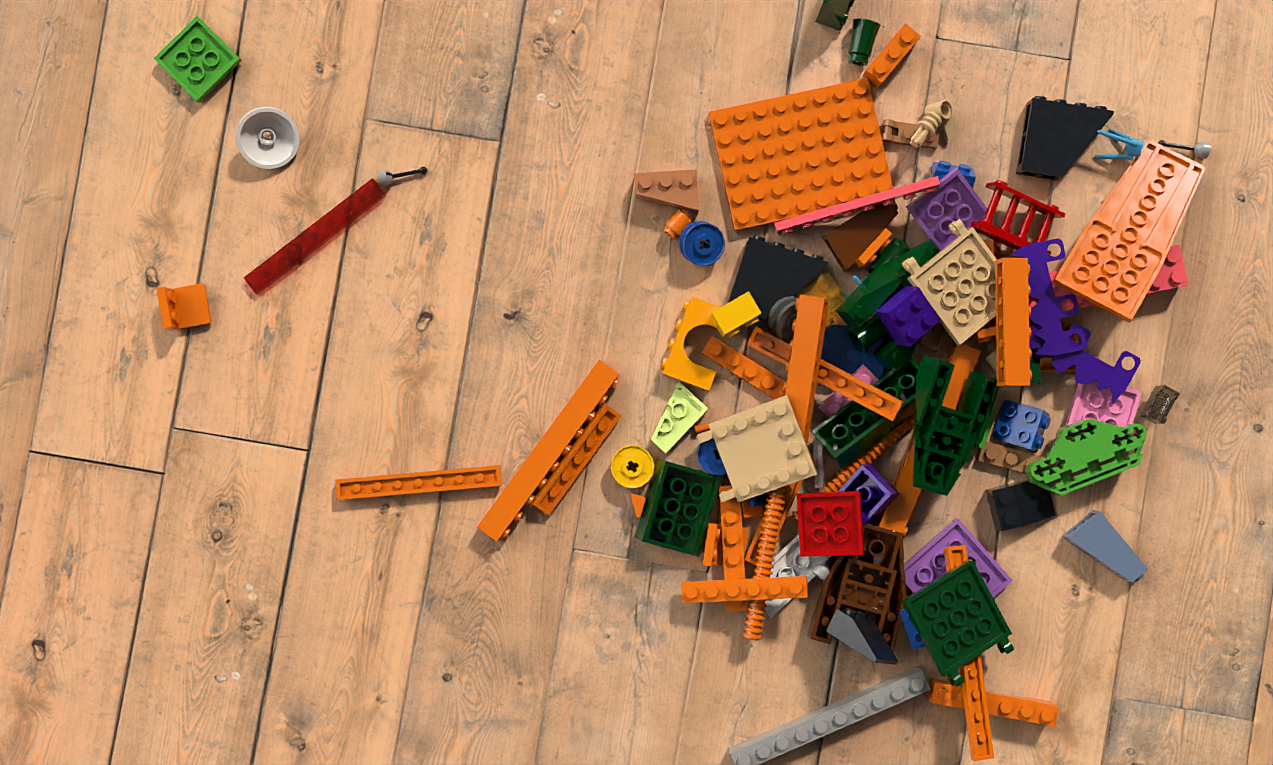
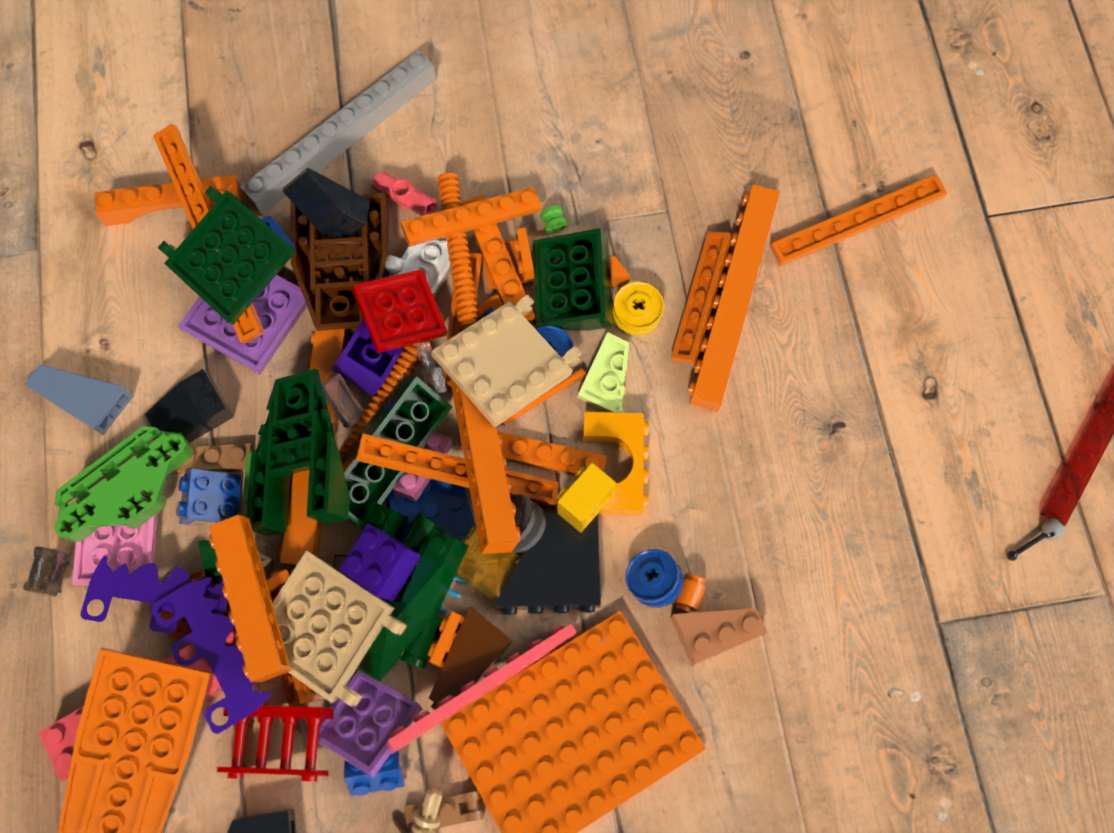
camera: 160 degrees right, 15 degrees down
(673, 570) = (553, 219): none -> bright green wheel
(785, 628) = (404, 194): none -> coral piece
(897, 467) = (342, 400): none -> clear tile

